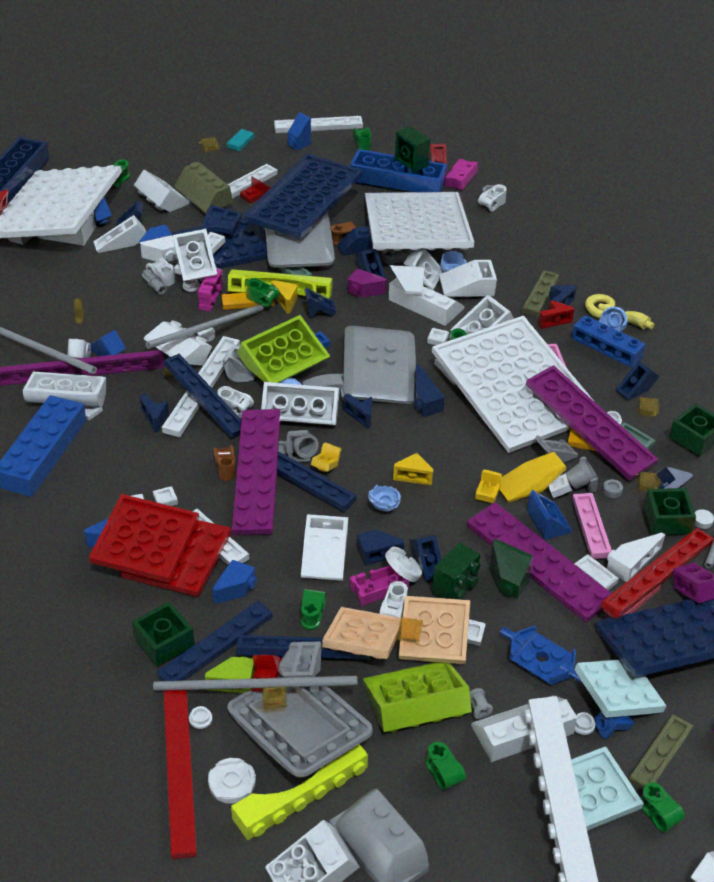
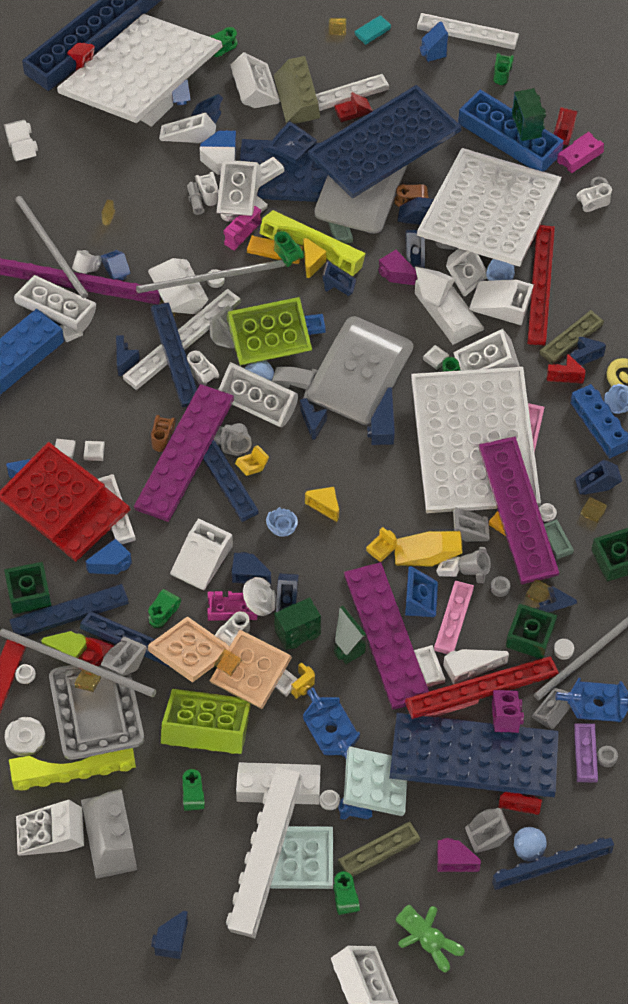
camera: 25 degrees right, 15 degrees up
(479, 704) = (252, 751): light grey bush -> none
(492, 621) = (304, 683): none -> yellow bracket
(504, 286) = (541, 290): none -> red tile

